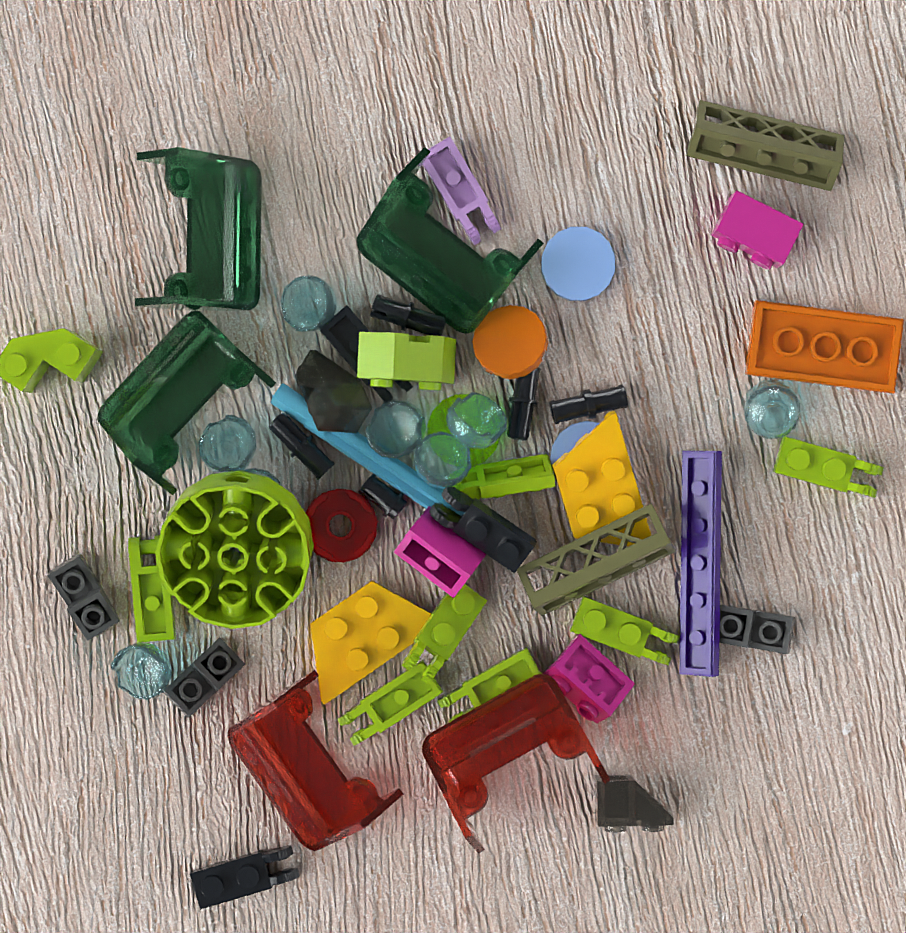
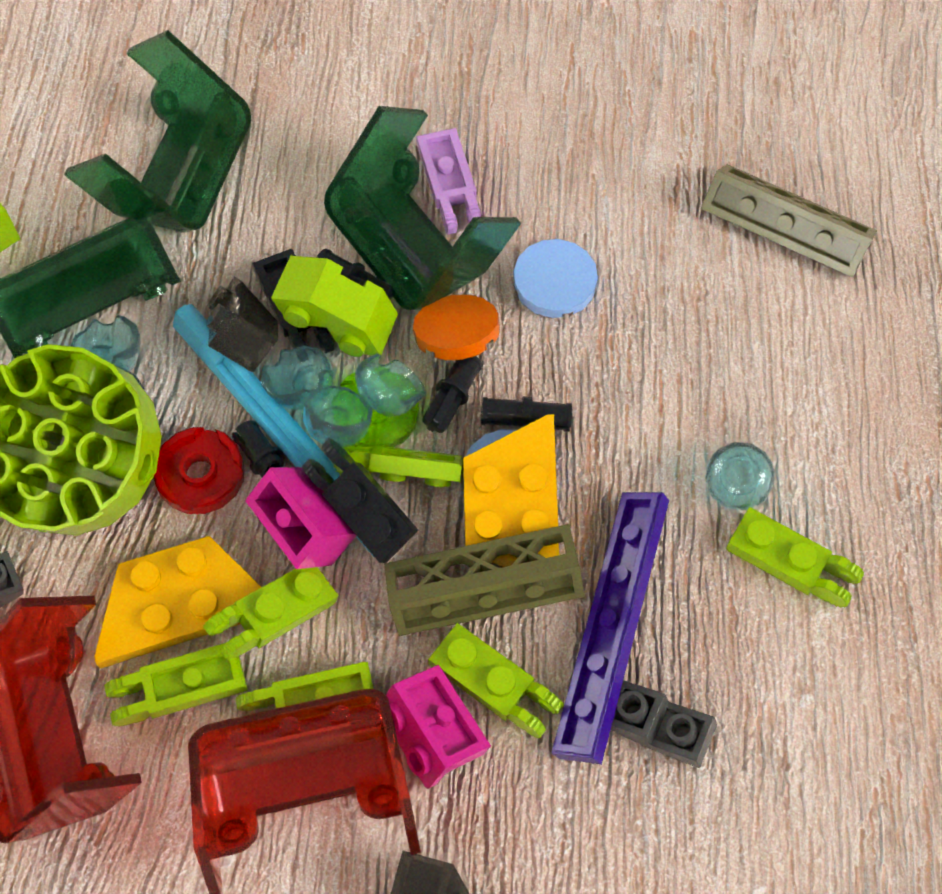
camera: 15 degrees right, 25 degrees down
(301, 445) = (188, 375): black axle -> none
(308, 303) = (251, 237): clear light blue hair -> none
(756, 231) = (762, 288): dark pink brick -> none
(824, 347) = (817, 429): orange tile -> none

